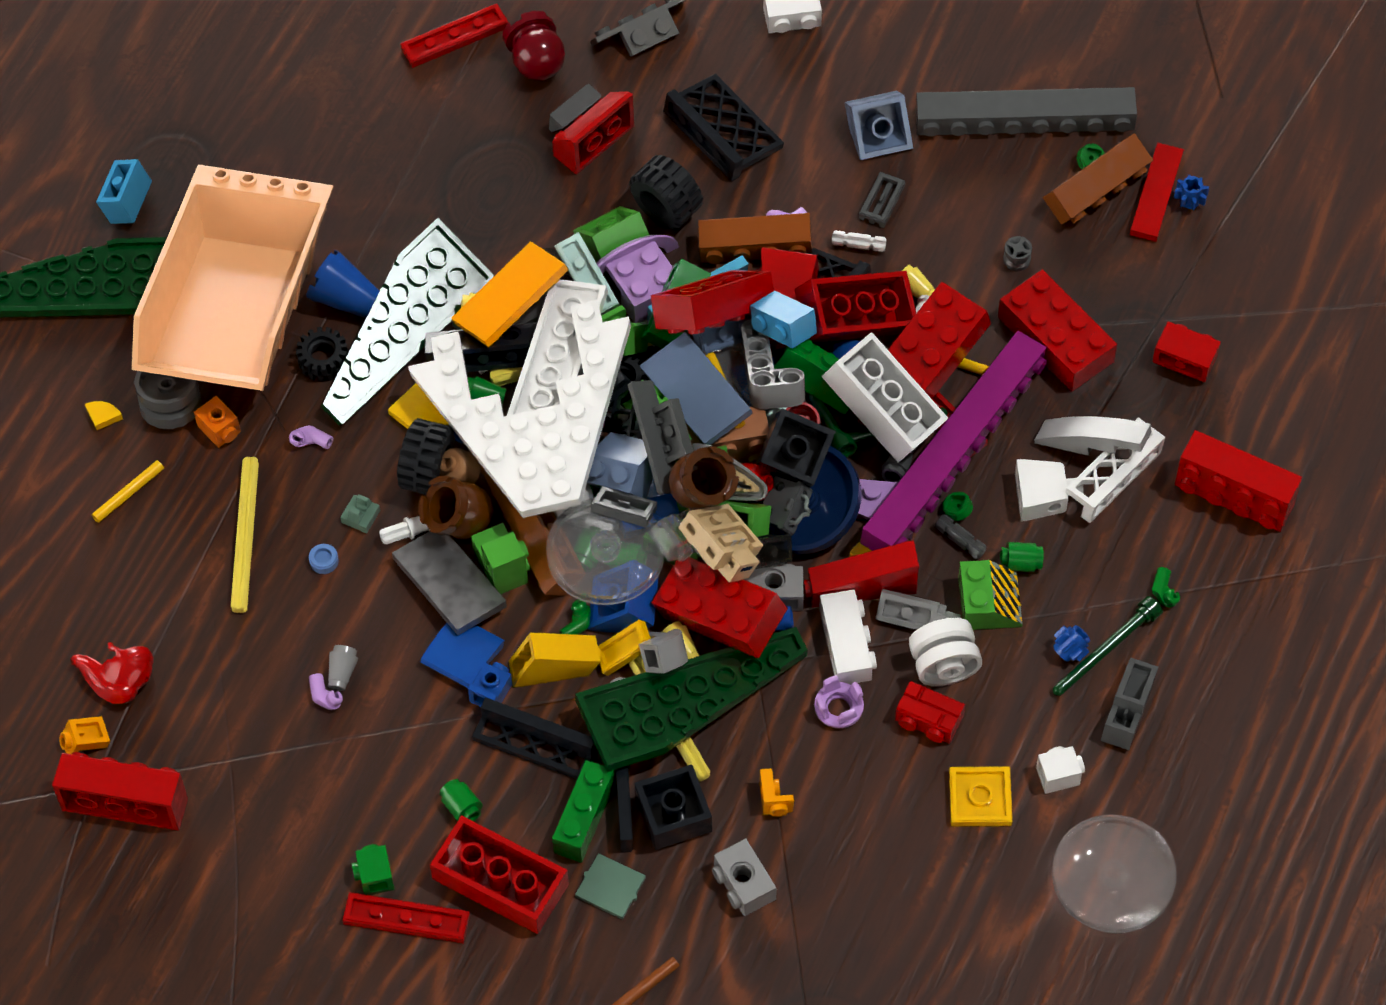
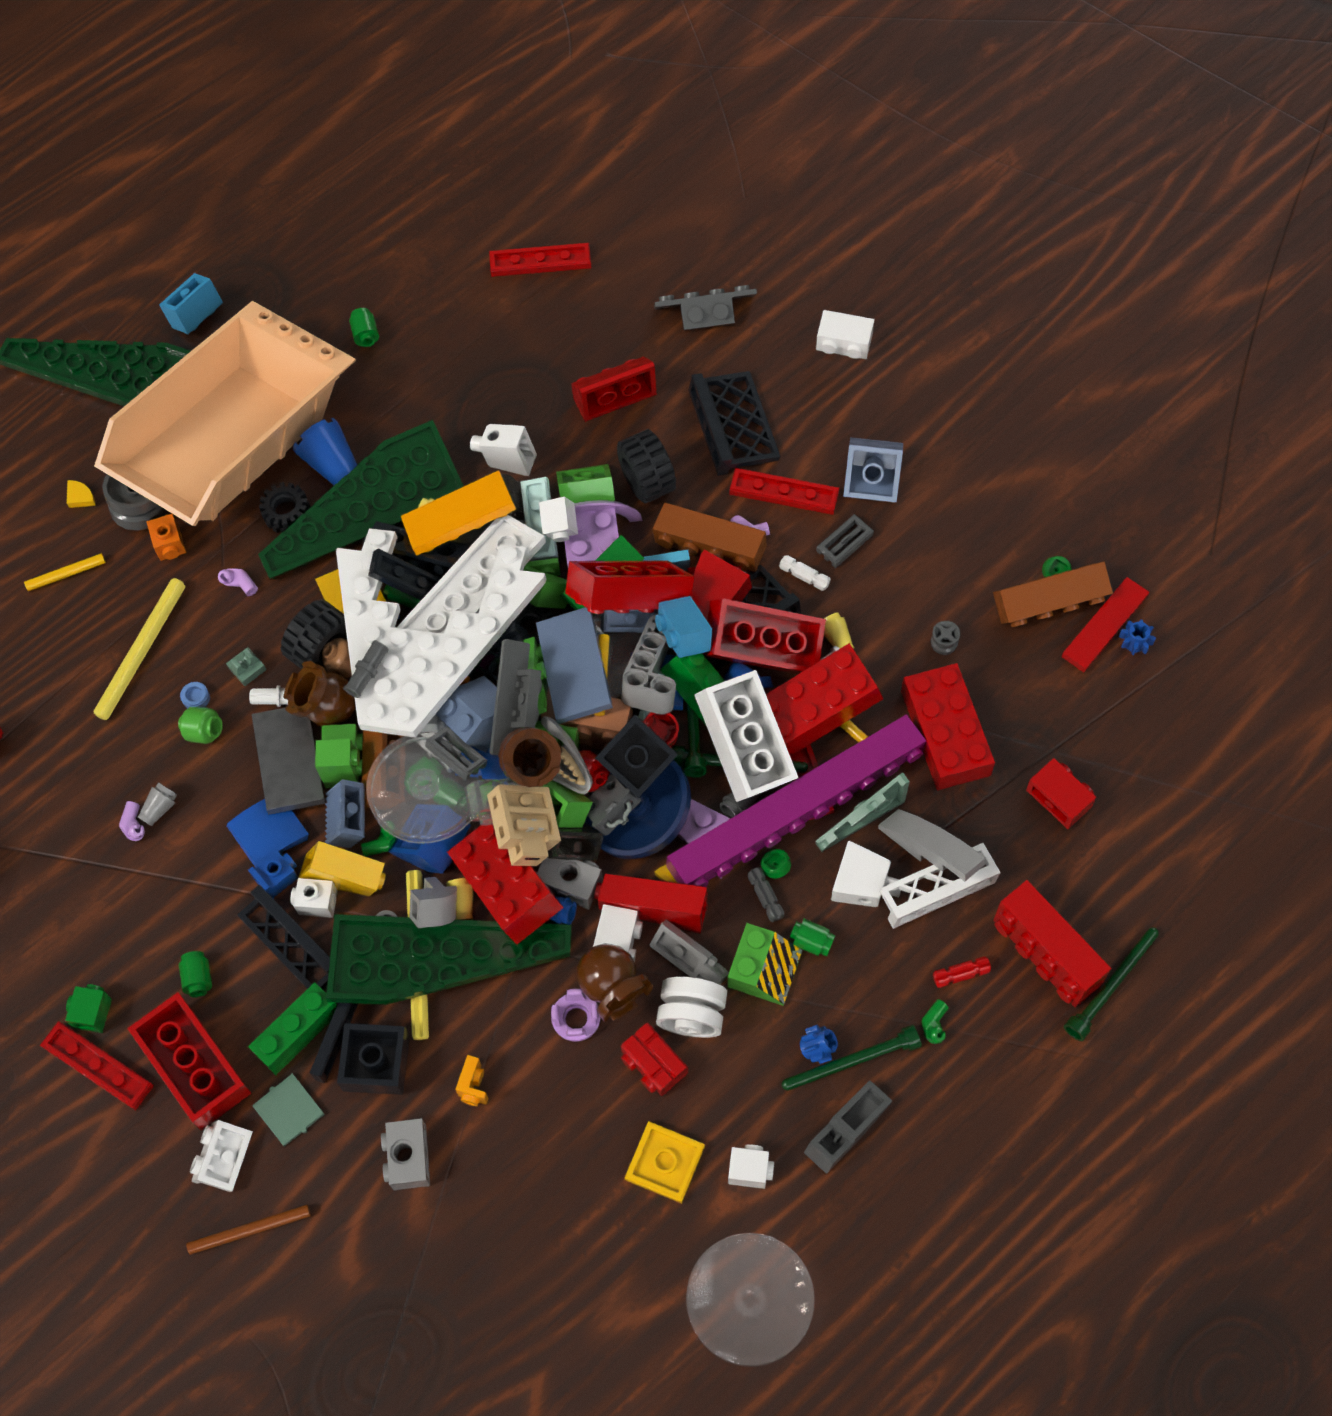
camera: 25 degrees right, 5 degrees up
(312, 157) = (363, 327): none -> green brick
(346, 580) = (200, 725): none -> bright green head
(486, 369) = (401, 574): none -> black tile
(504, 459) = (366, 669): none -> dark grey pin
(516, 222) = (506, 448): none -> white torso
(533, 605) = (345, 814): none -> sand blue brick
(535, 45) = (598, 291): dark red tile -> none
(541, 692) = (314, 897): none -> white brick
(569, 945) = (221, 1155): none -> white bracket
(573, 107) = (606, 359): dark grey slope -> none
(612, 266) = (558, 519): none -> white brick
(623, 647) = (400, 882): yellow tile -> none
(802, 173) = (784, 491): none -> red tile
(864, 649) = (610, 978): none -> reddish brown tile
(1020, 429) = (867, 811): none -> sand green wing
(1025, 111) = (1015, 504): dark grey brick -> none
(1168, 537) = (961, 971): none -> red axle
(1292, 544) = (1079, 1025): none -> dark green piece

